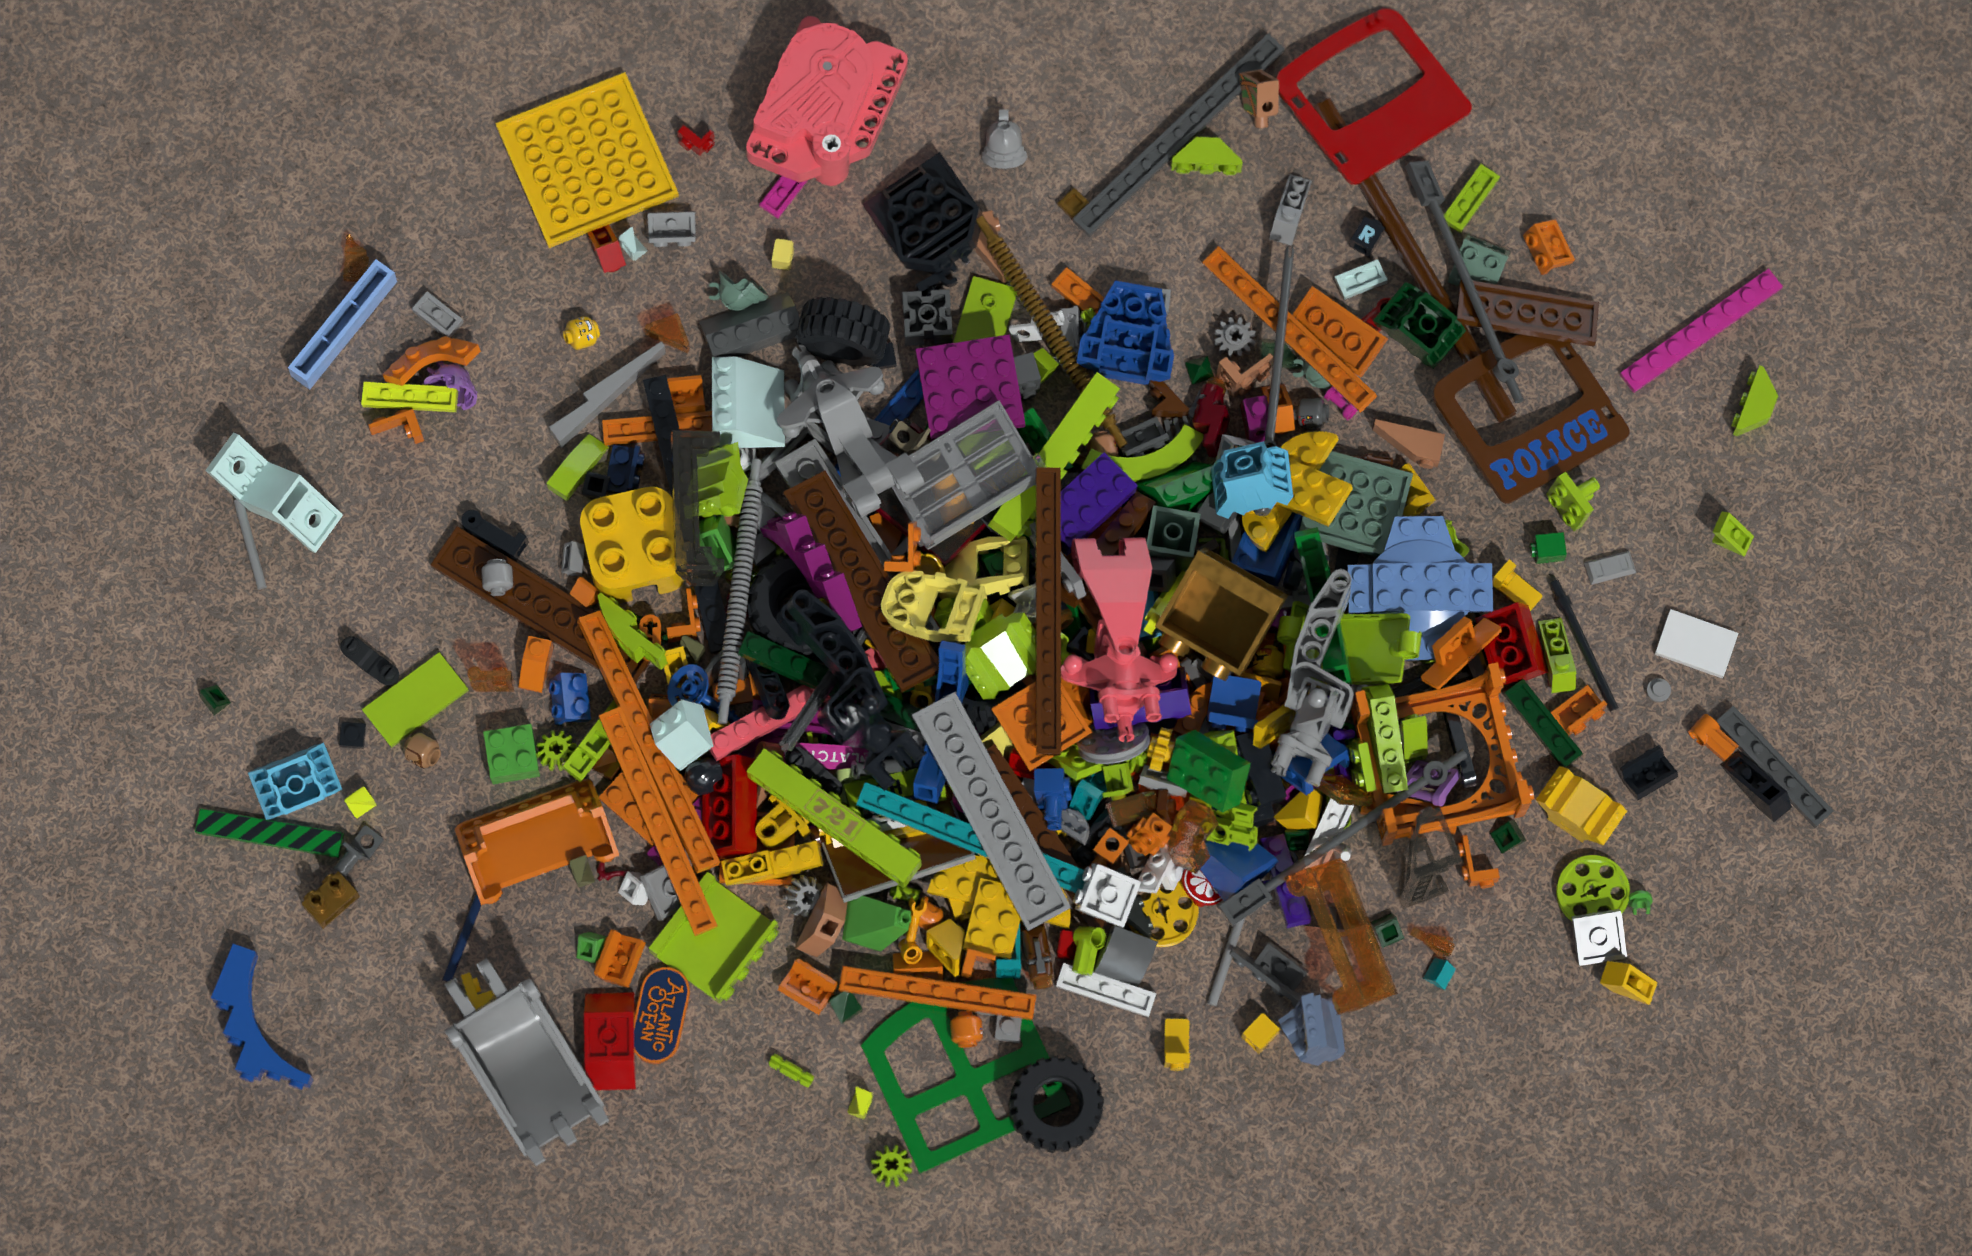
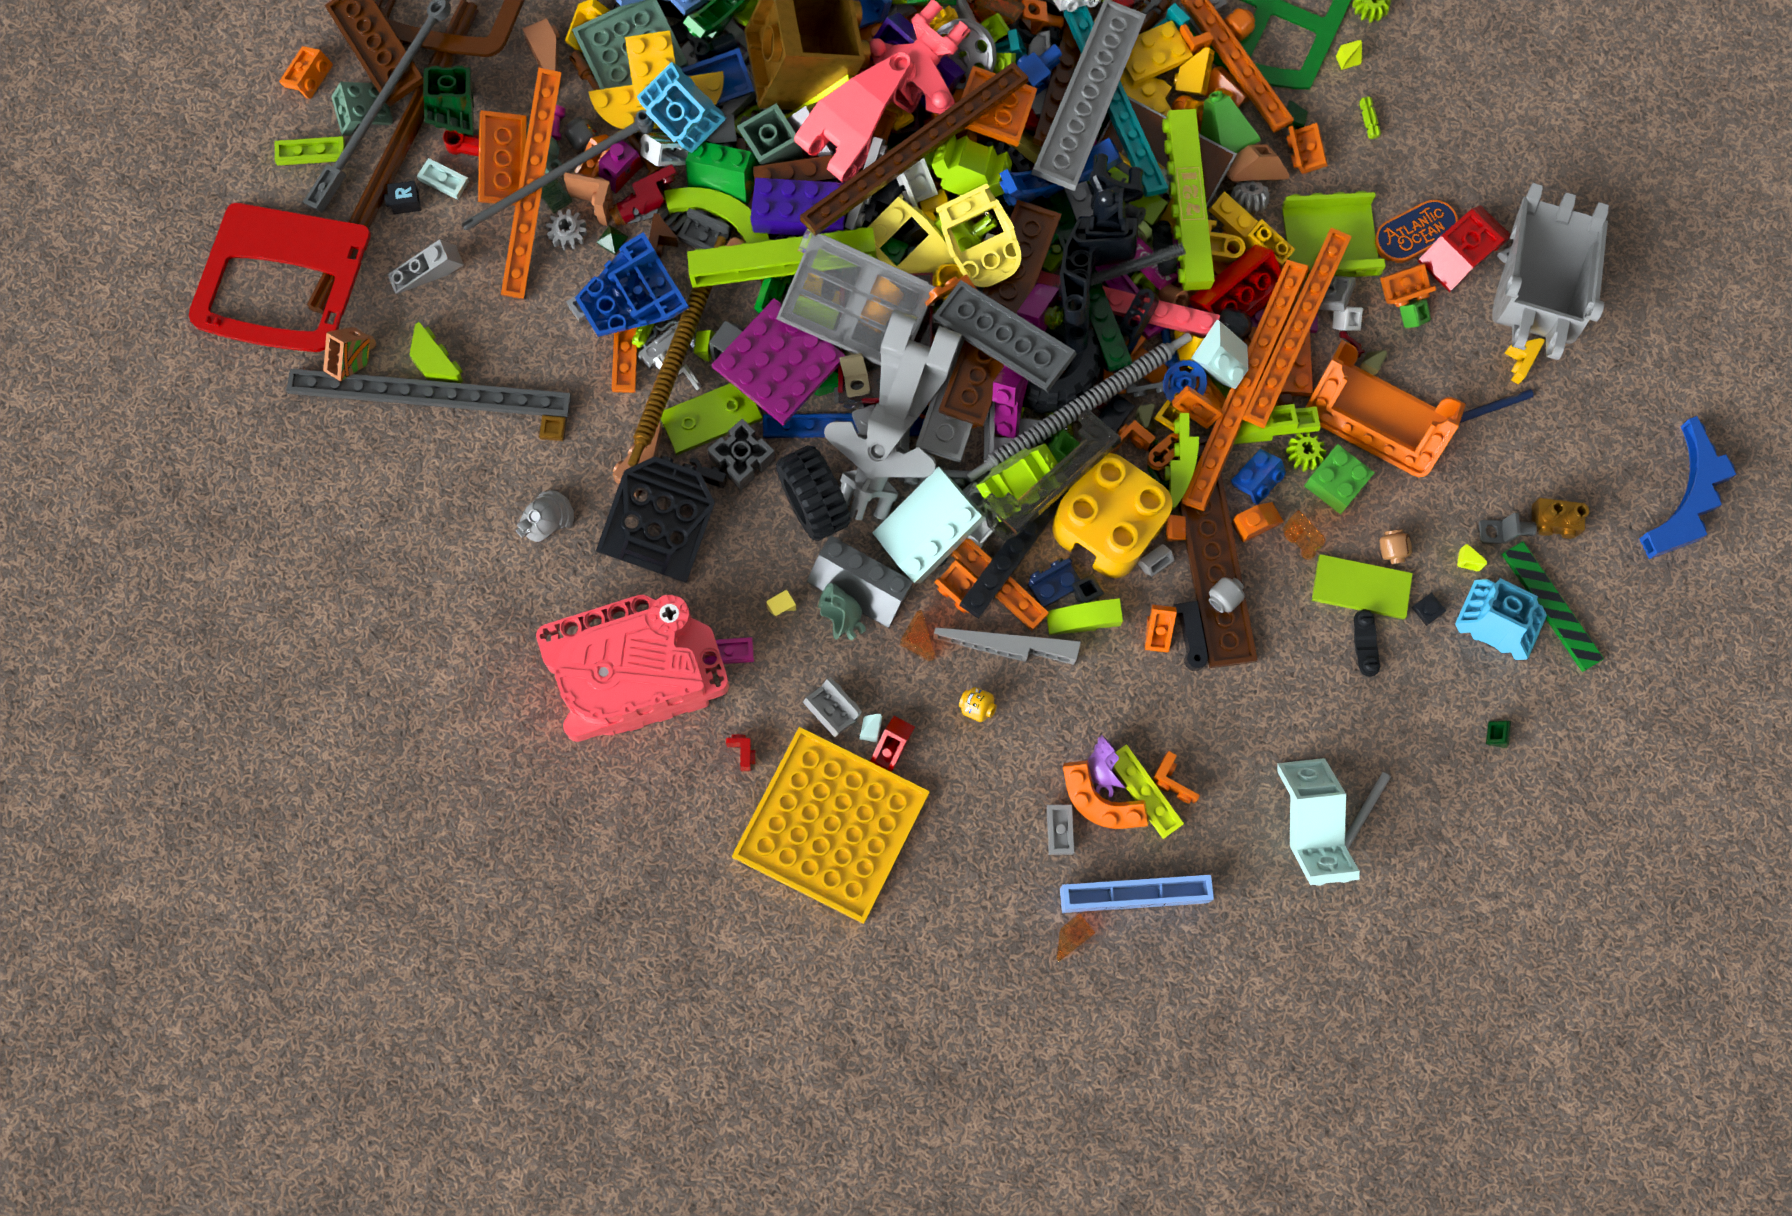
camera: 135 degrees left, 0 degrees up
(519, 514) = (1160, 628): none -> orange slope
(662, 680) = (1198, 407): none -> orange plate
(831, 545) = (1004, 336): none -> dark grey plate

